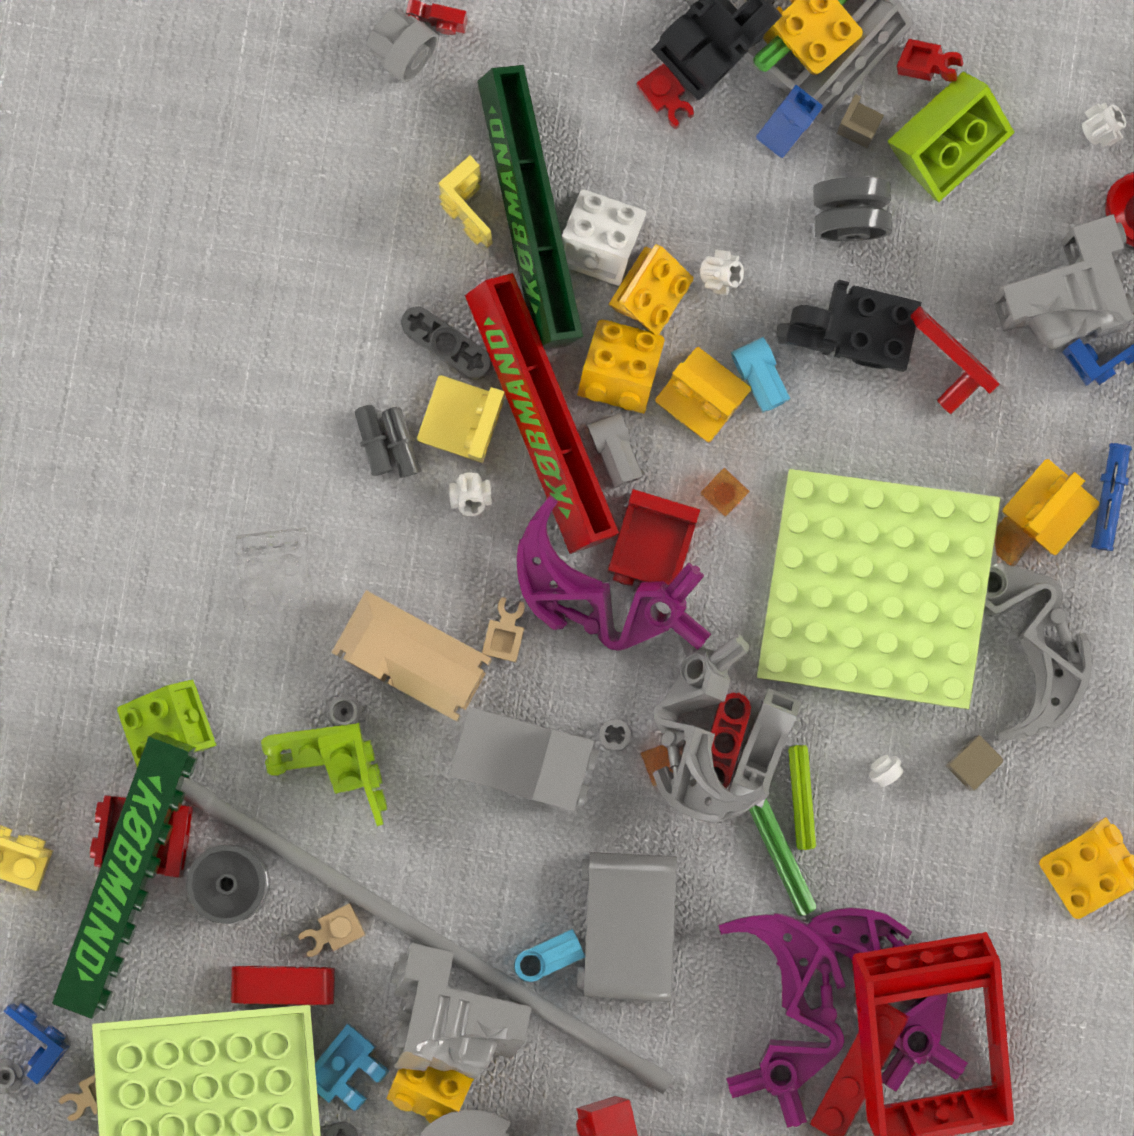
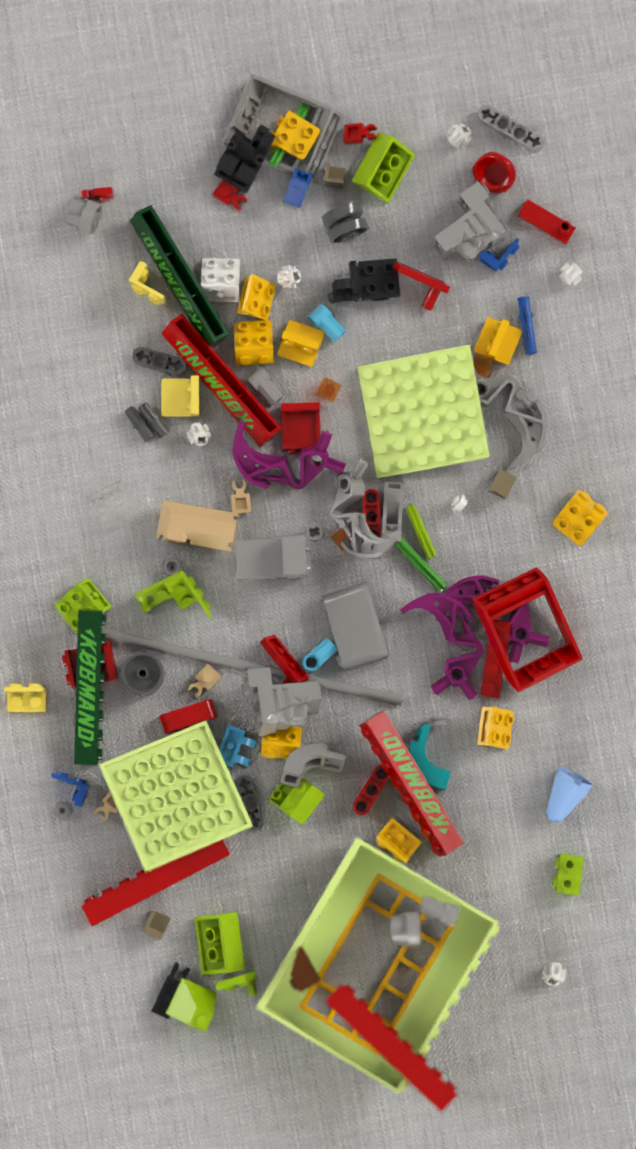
camera: 20 degrees left, 0 degrees up
(485, 947) = (284, 660): none -> red piece

